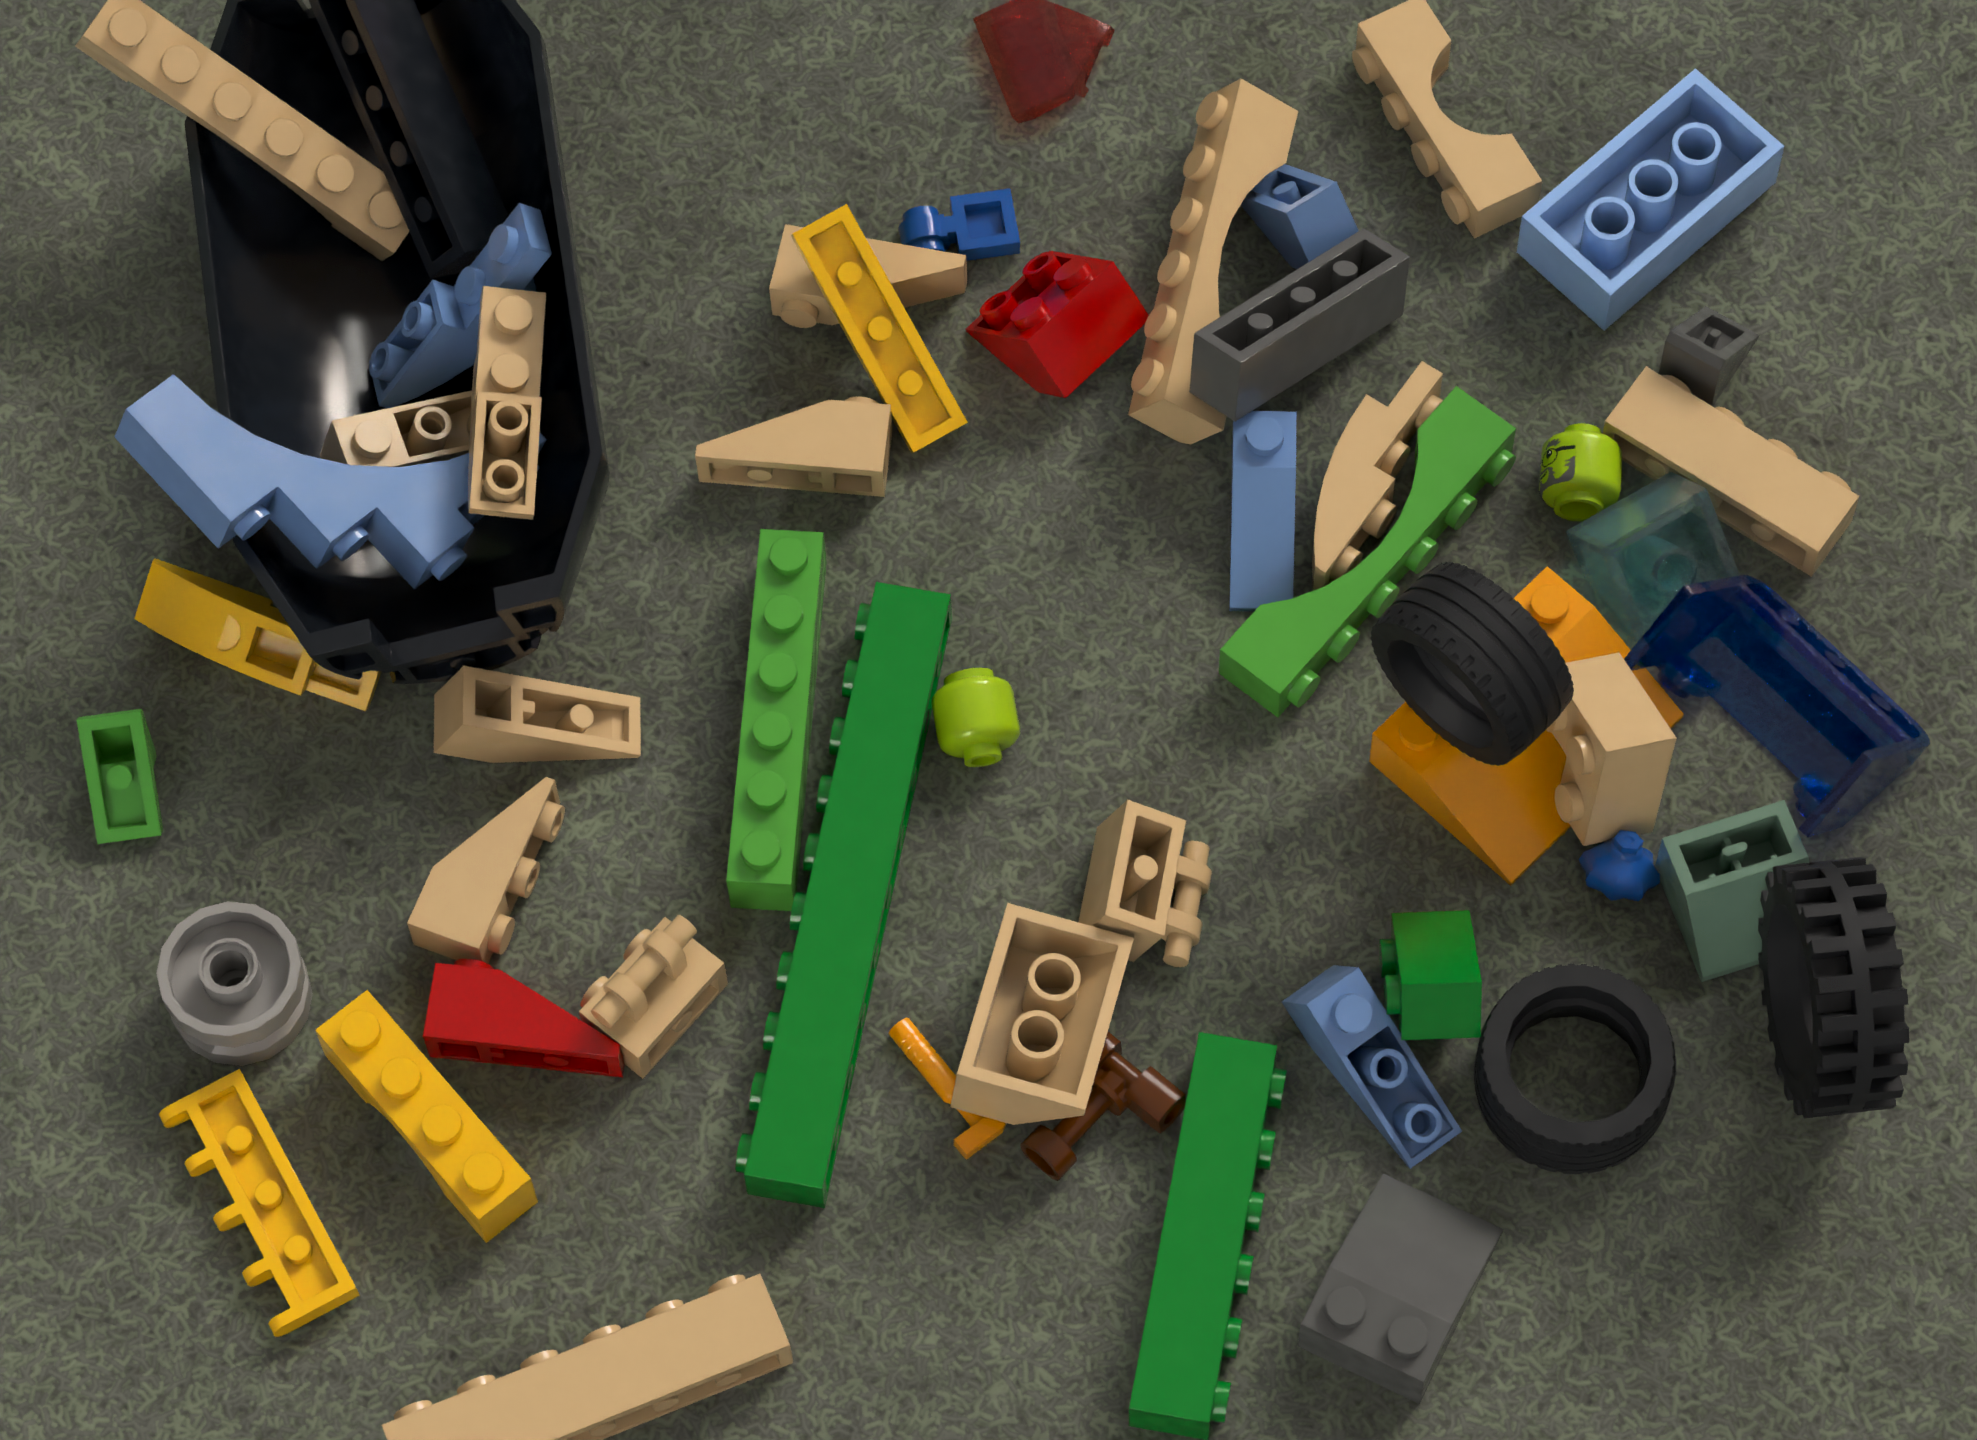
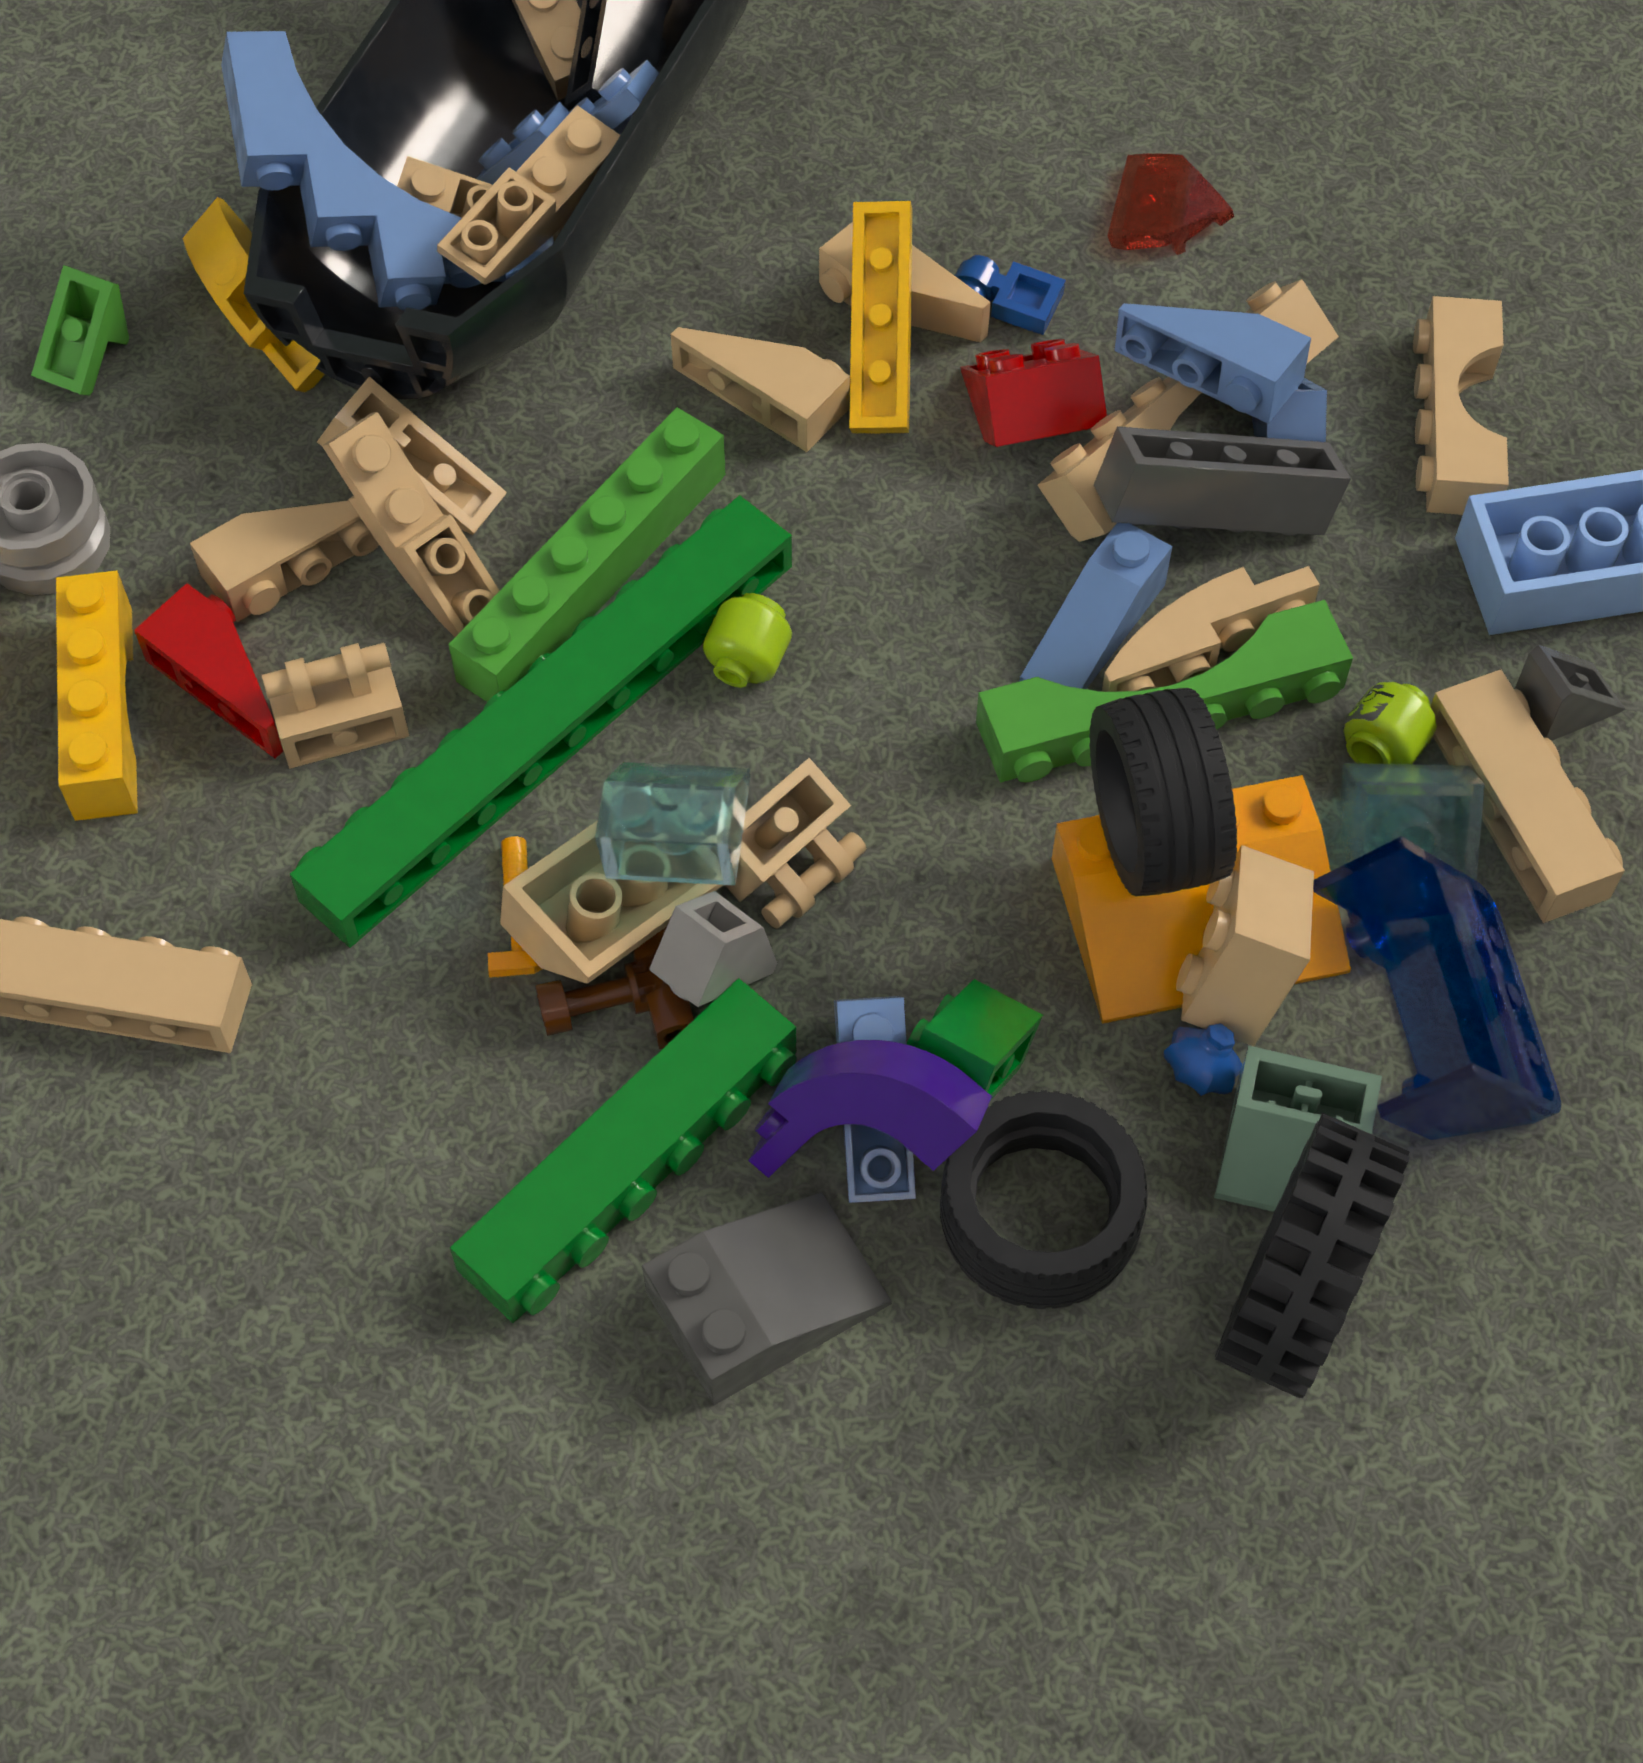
camera: 30 degrees right, 5 degrees down
(612, 794) = (409, 524): none -> tan slope
(1065, 926) = (672, 822): none -> clear light blue slope
(1163, 1023) = (710, 948): none -> light grey slope
(1236, 202) = (1221, 353): none -> medium blue slope
(1387, 1059) = (874, 1085): none -> dark purple arch

